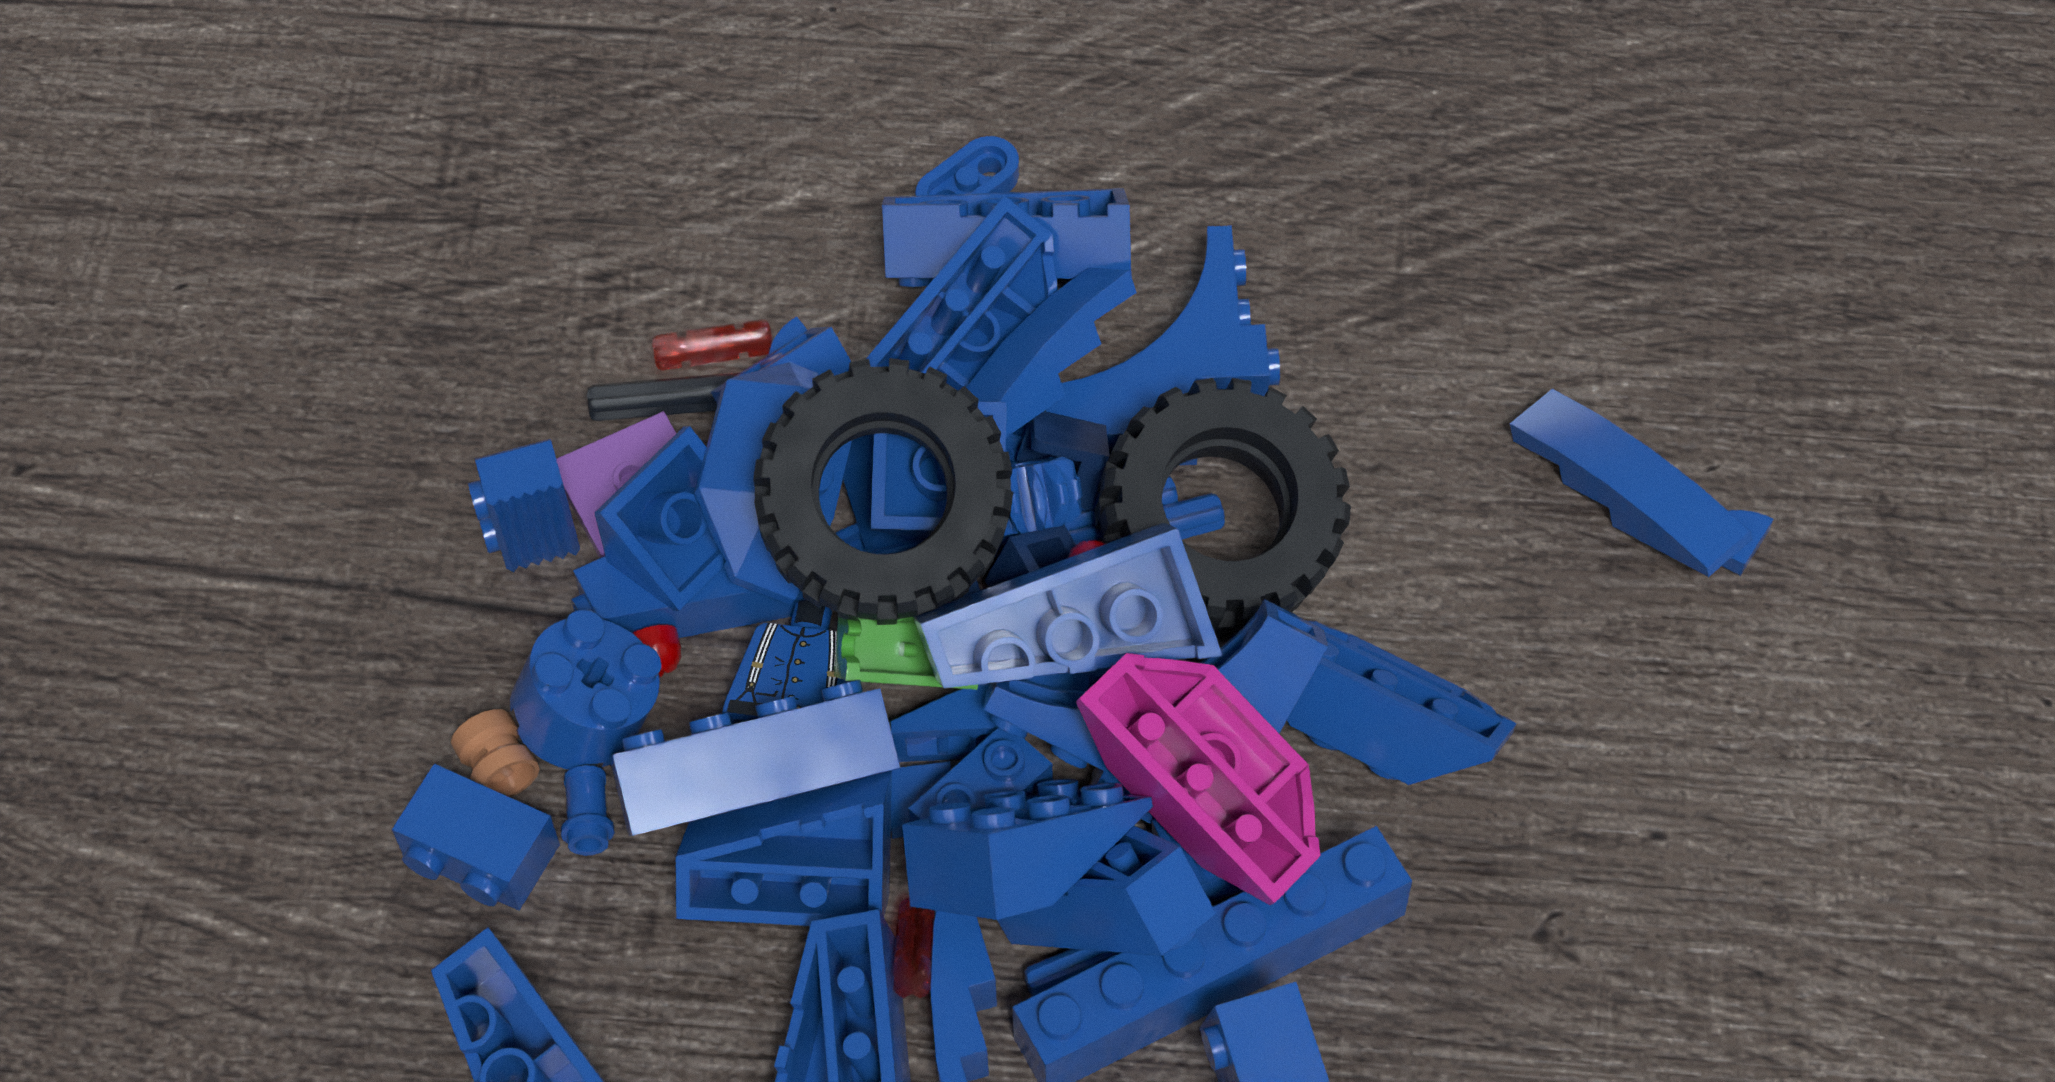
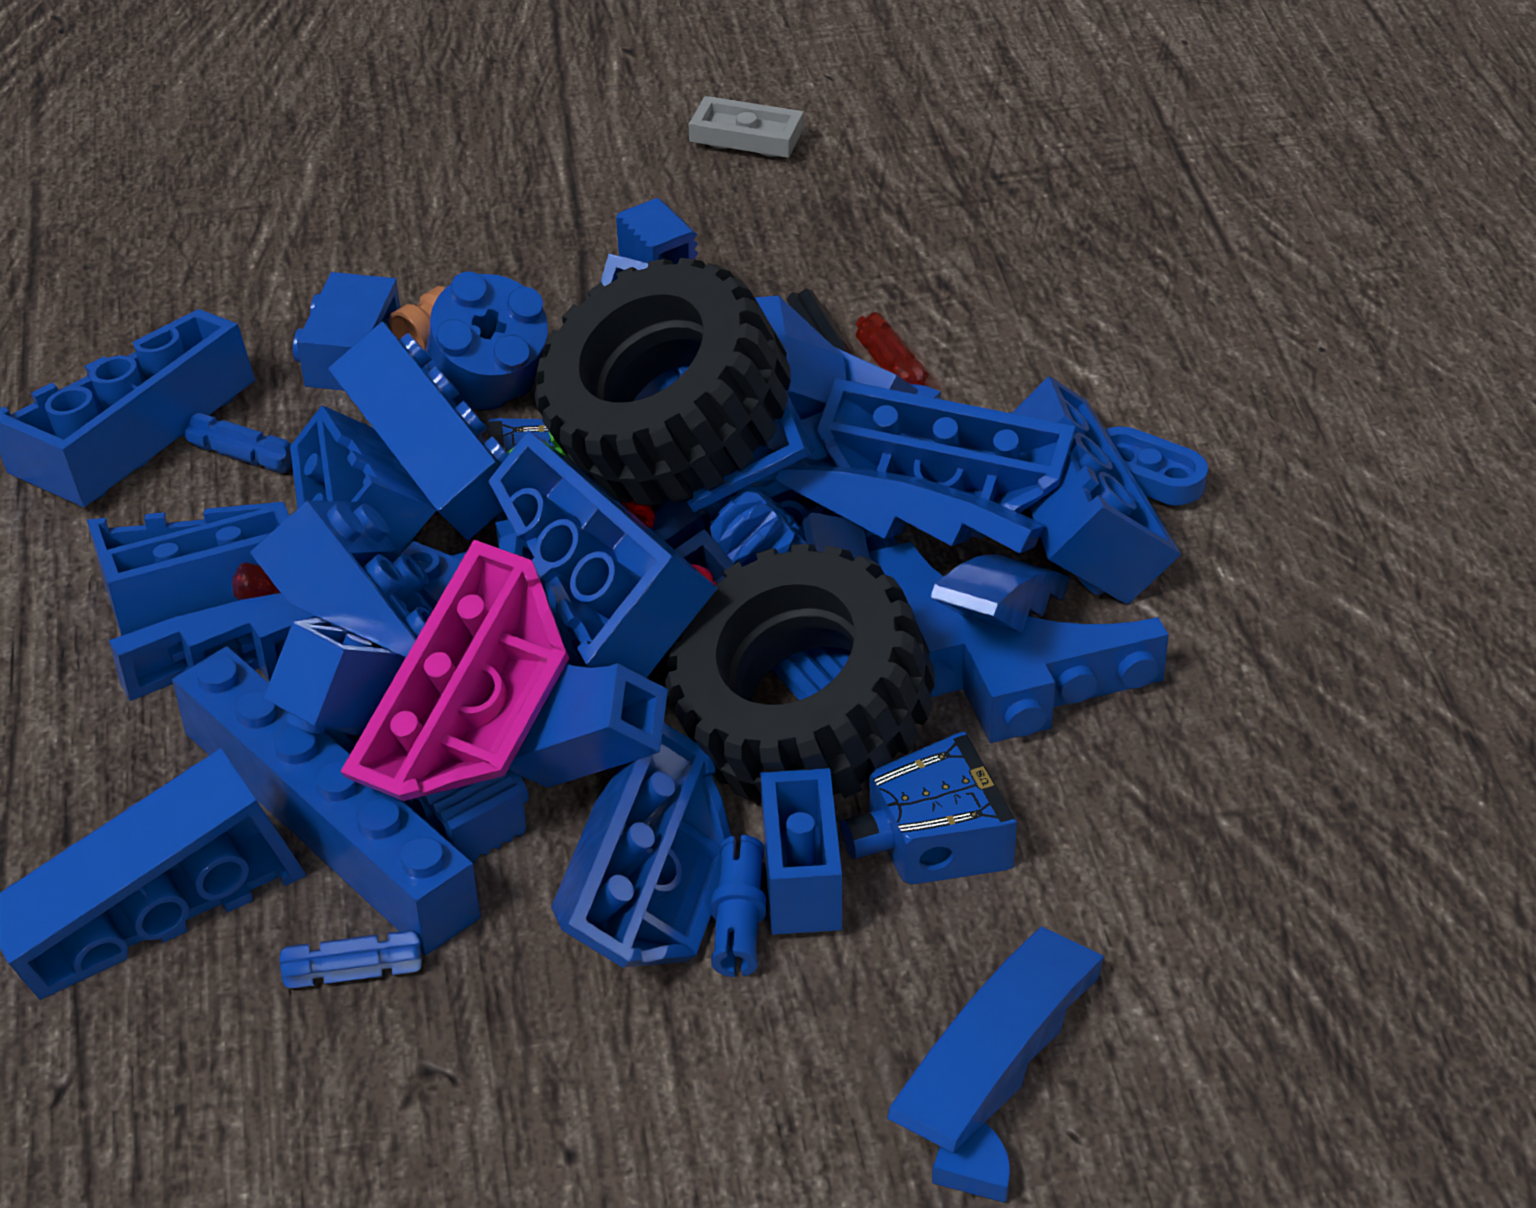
camera: 75 degrees right, 15 degrees down
(262, 379) = (746, 126): none -> light grey plate
(615, 982) = (239, 442): none -> blue axle
(1176, 327) = (999, 590): none -> blue slope
(1383, 460) = (935, 815): none -> blue torso
(1404, 569) = (801, 851): none -> blue brick
(1410, 973) = (350, 959): none -> blue axle
(1431, 640) = (738, 906): none -> blue pin

